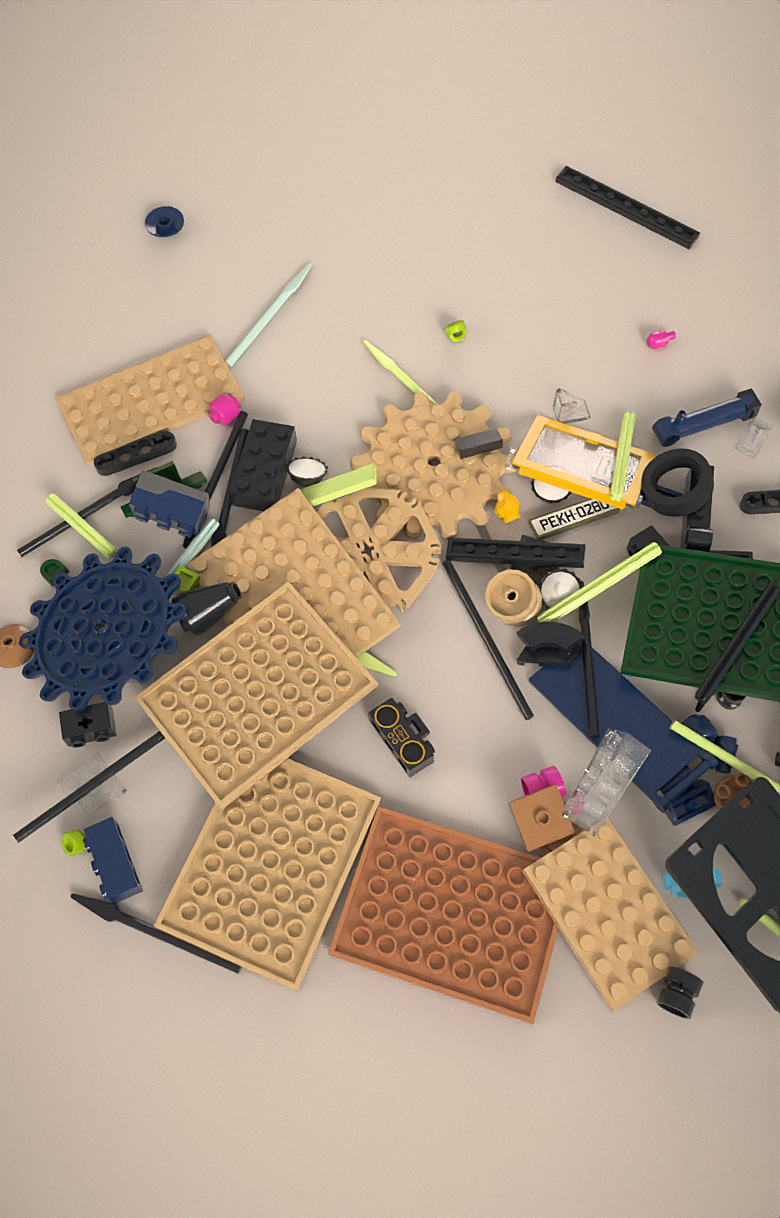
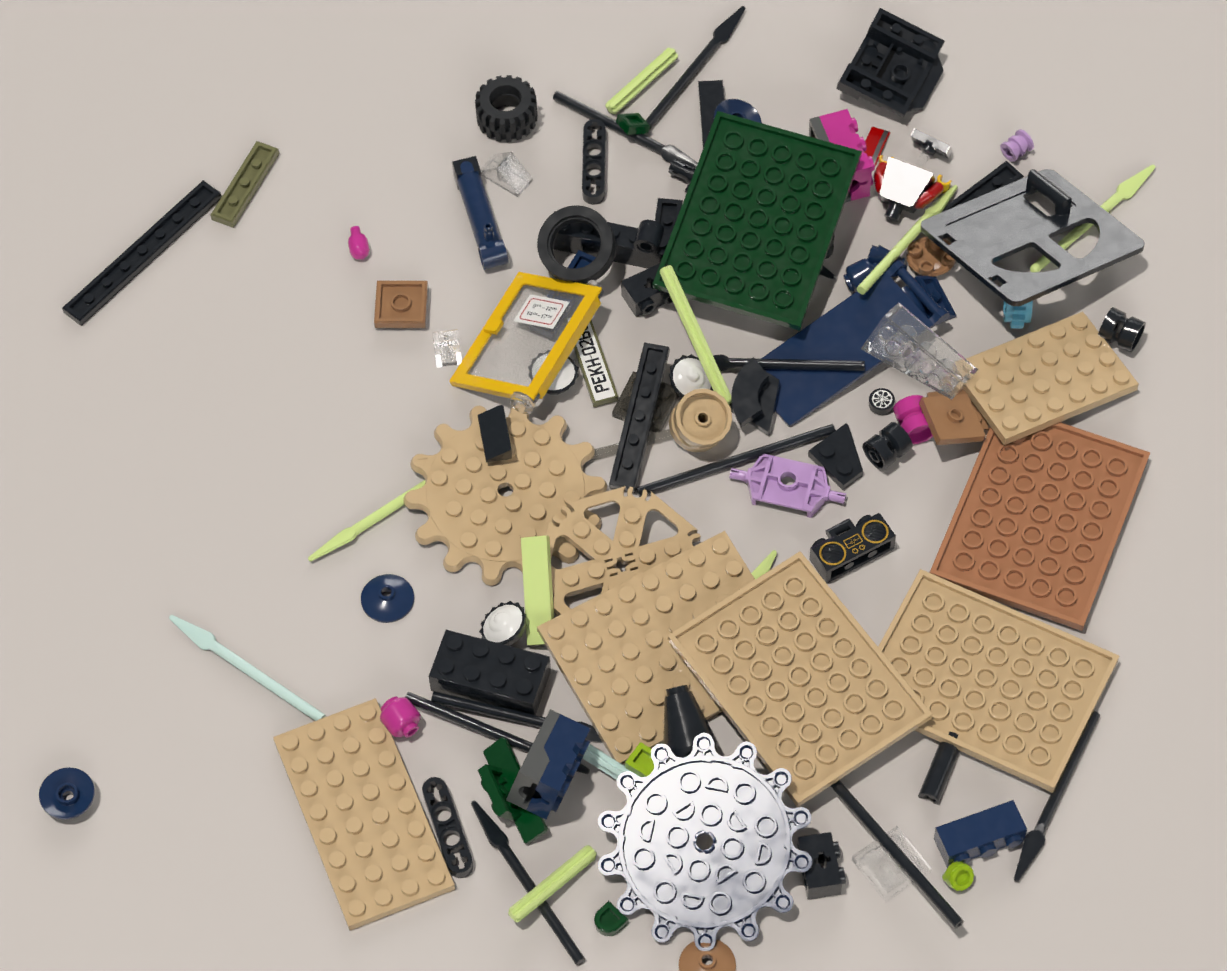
camera: 85 degrees left, 5 degrees down
(178, 823) = (939, 770): none -> black piece
(335, 402) = (391, 607): none -> dark blue dish
(454, 328) = (310, 454): lime tile -> none
(458, 697) = (805, 494): none -> lavender plate
(498, 723) = (838, 457): none -> black wing
(507, 506) = (578, 419): yellow rock -> none
(513, 770) = (888, 445): none -> black wheel
(564, 758) = (881, 401): none -> black tile
(606, 373) = (401, 304): none -> medium nougat plate
(622, 457) = (529, 295): yellowish green axle -> none
(704, 260) = (244, 184): none -> olive tile
(737, 643) = (786, 213): black axle -> none

